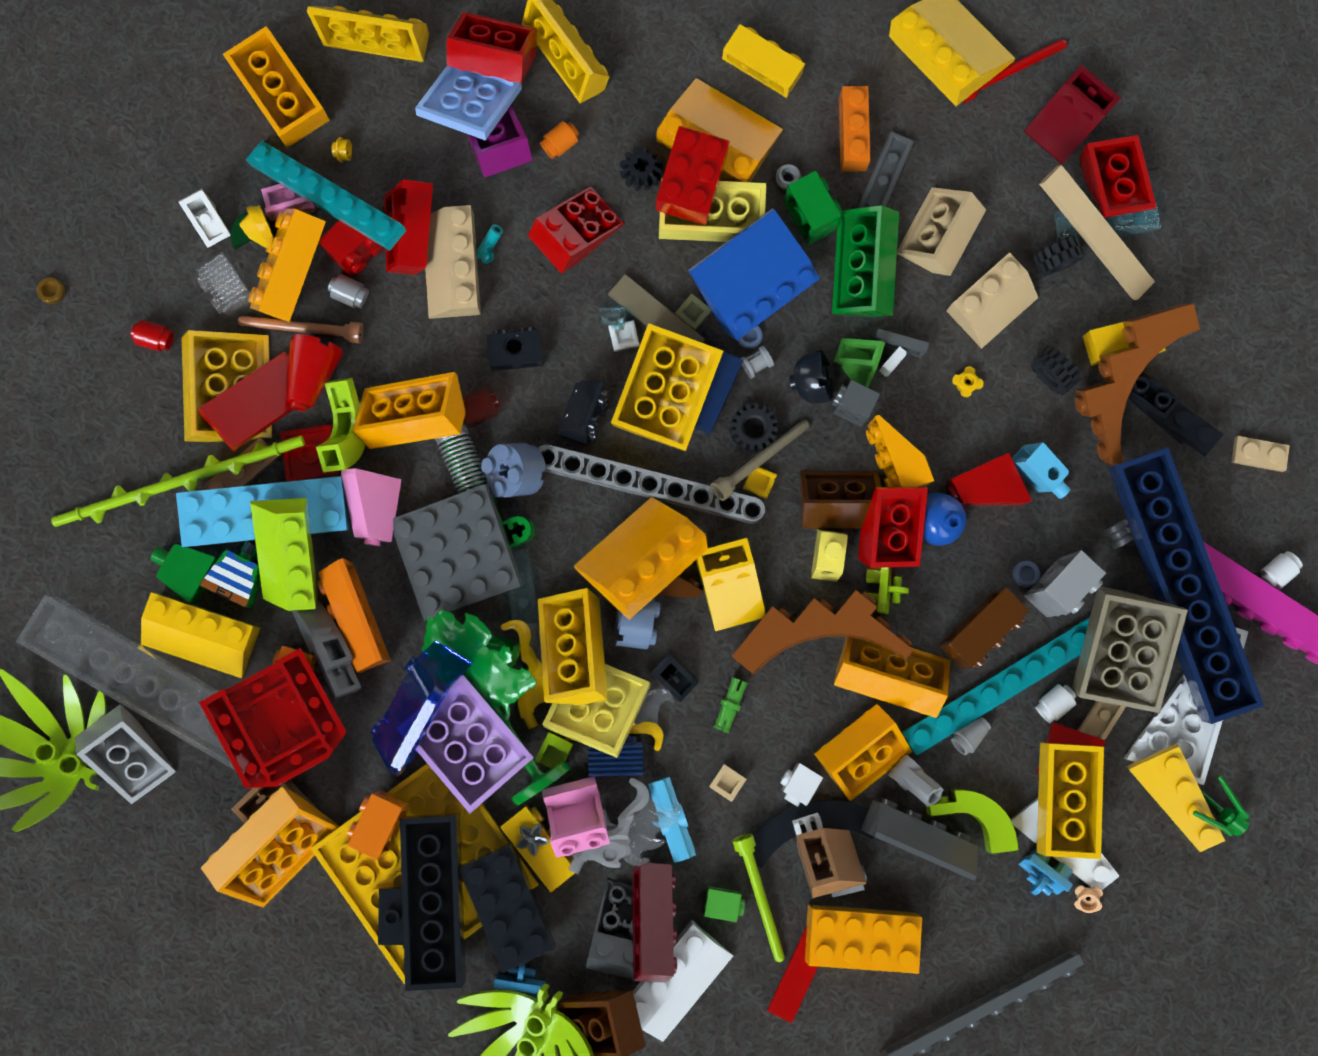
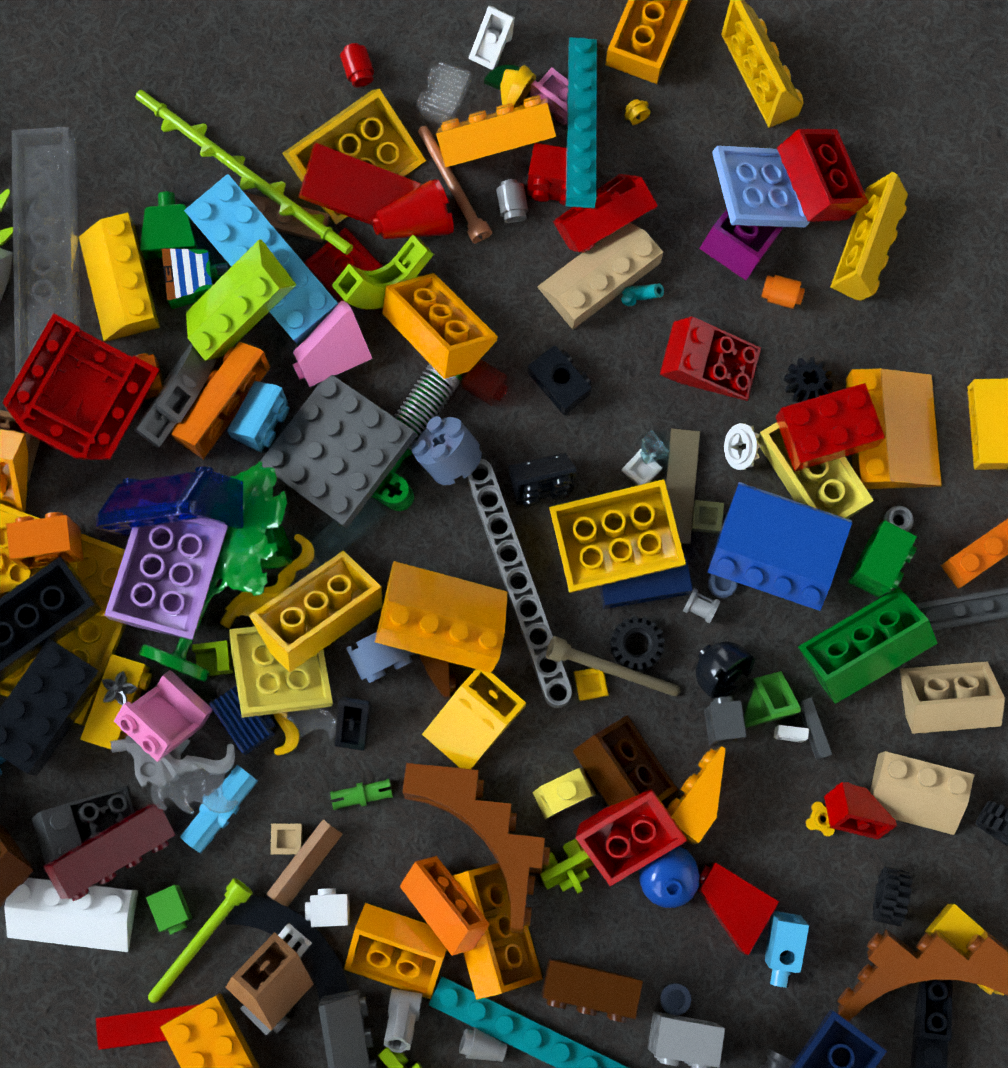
camera: 60 degrees right, 5 degrees down
(387, 596) = (259, 416): none -> medium azure slope
(664, 259) = (739, 435): none -> white gear
(755, 781) = (304, 863): none -> medium nougat tile
(856, 696) = (444, 905): none -> orange brick
(979, 353) = (857, 811): none -> red slope

